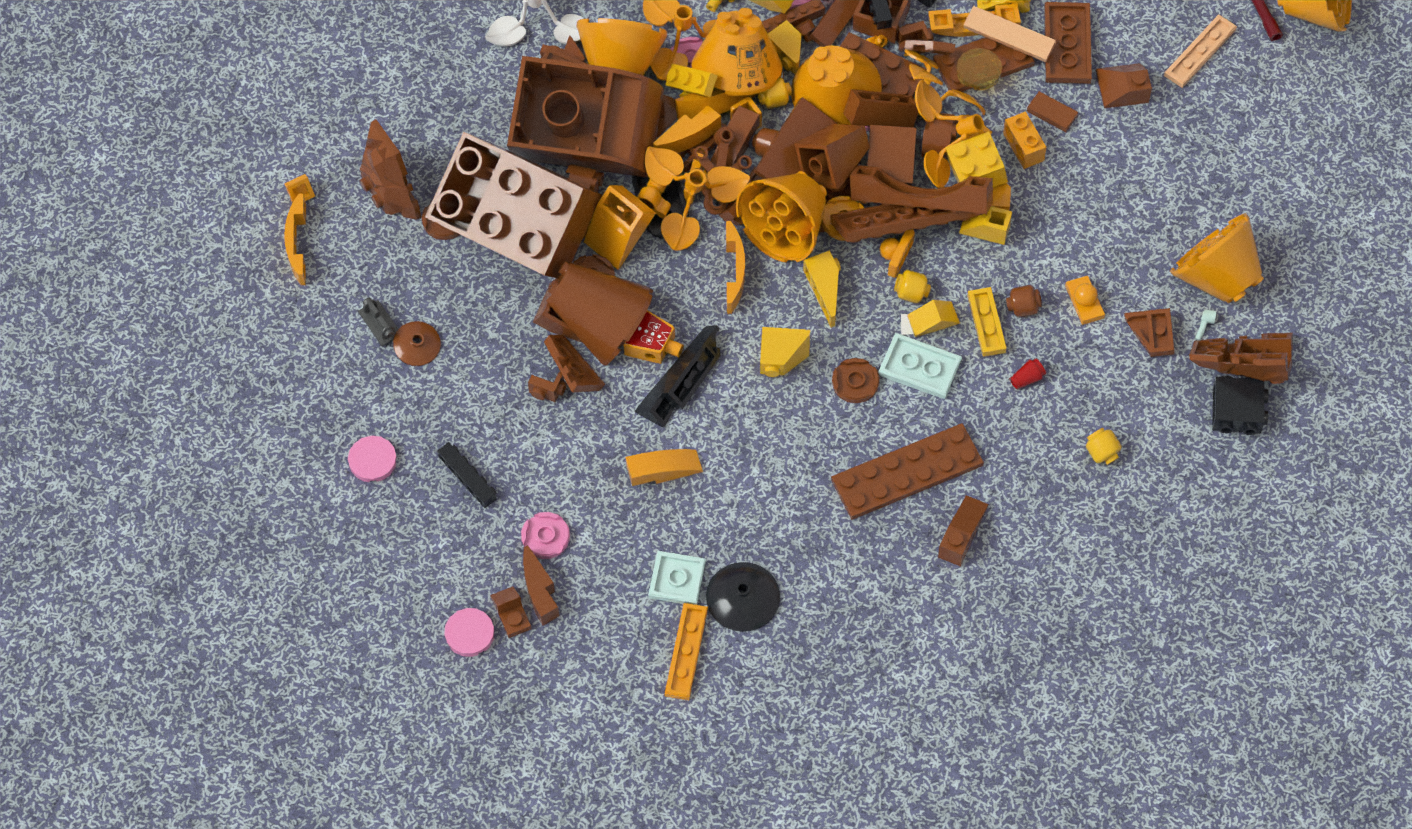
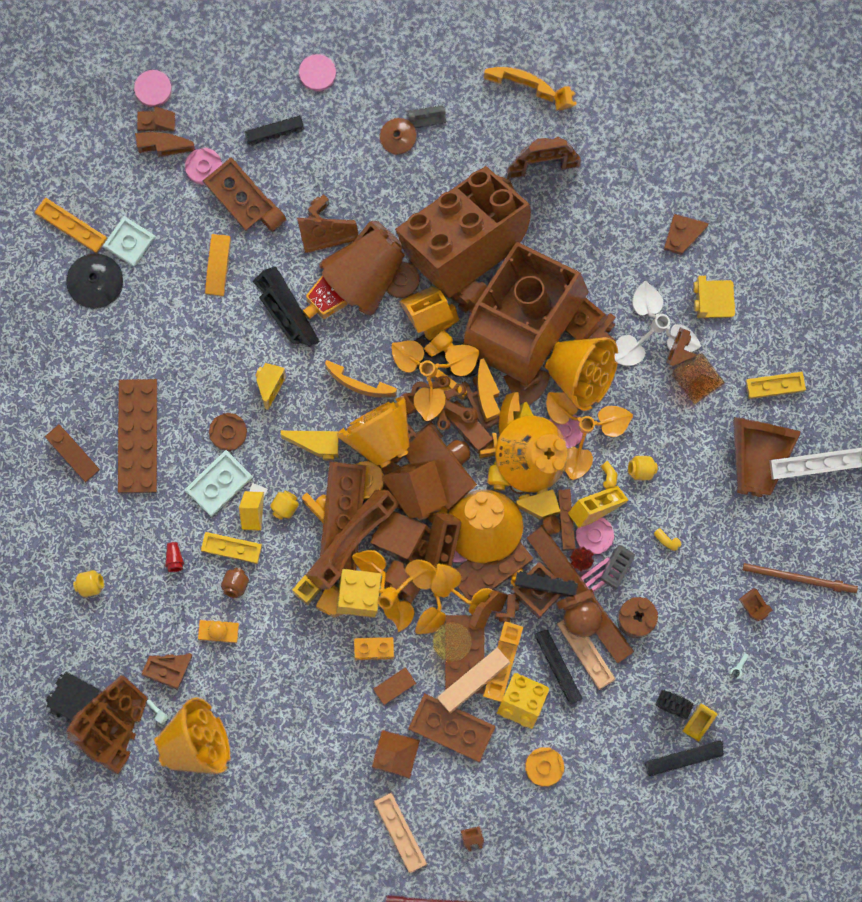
camera: 105 degrees right, 15 degrees up
(412, 24) = (683, 233): none -> dark orange wing
(569, 455) = (256, 206): none -> dark orange hinge
(691, 80) = (528, 409): yellow plate -> none

